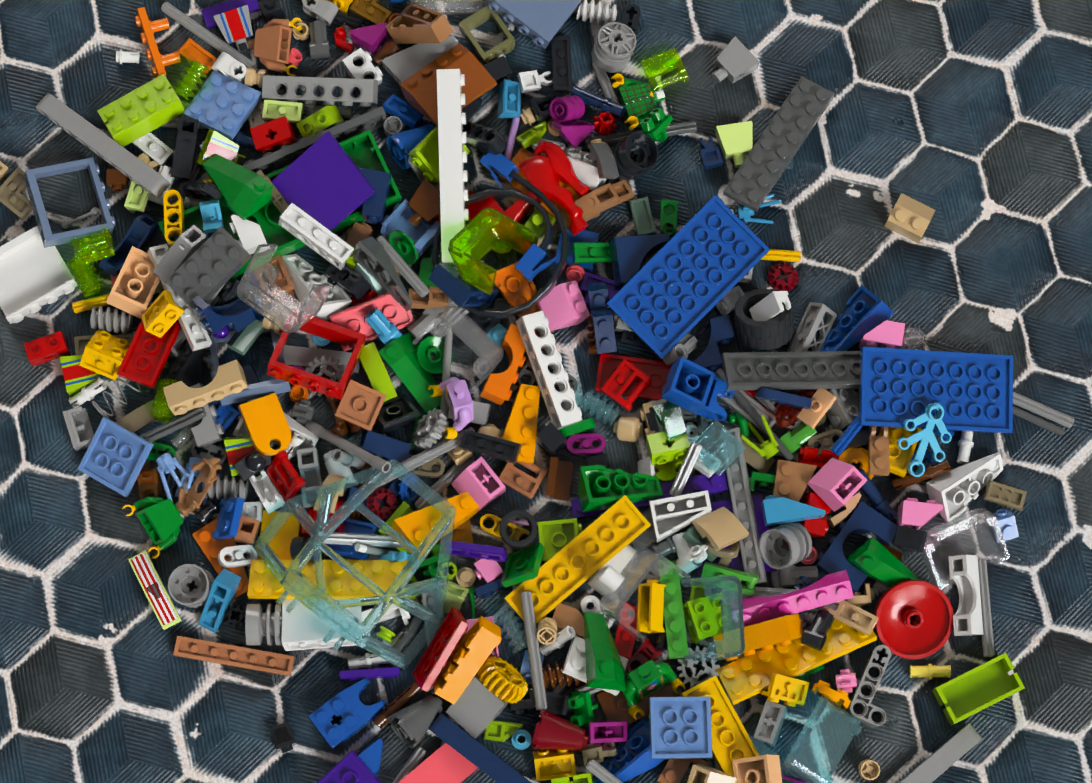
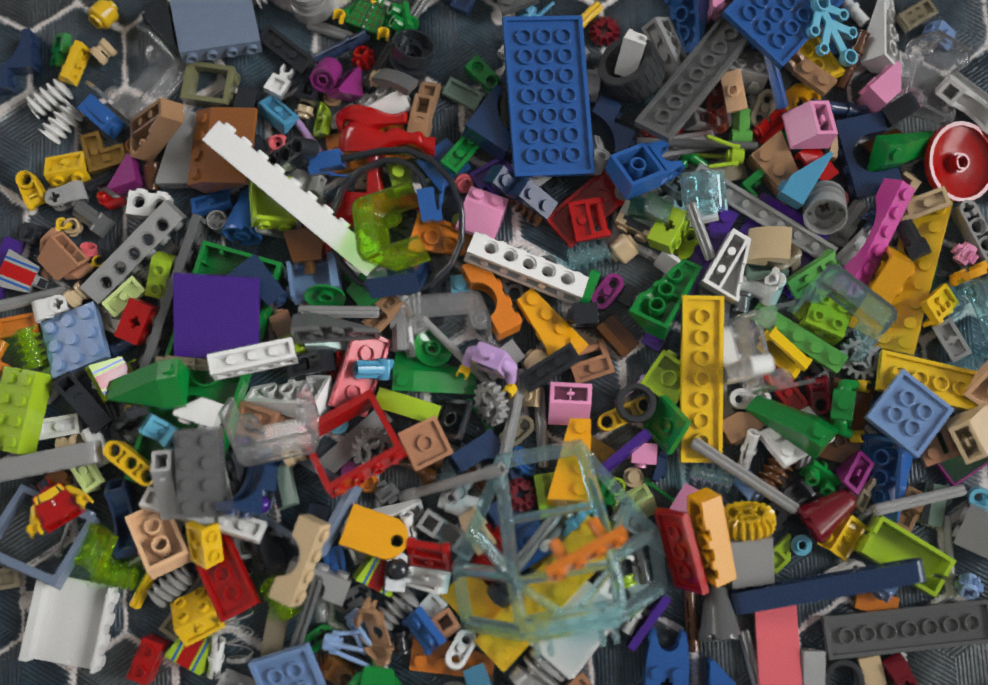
camera: 45 degrees left, 5 degrees up
(99, 194) = (55, 506): none -> torso
(369, 568) = (594, 550): none -> orange plate
(473, 161) = (313, 184): none -> white leg
(486, 113) = (273, 140): none -> coral plate
(547, 631) = (738, 451): tan wheel -> none
(784, 398) = (710, 106): dark blue beam -> none

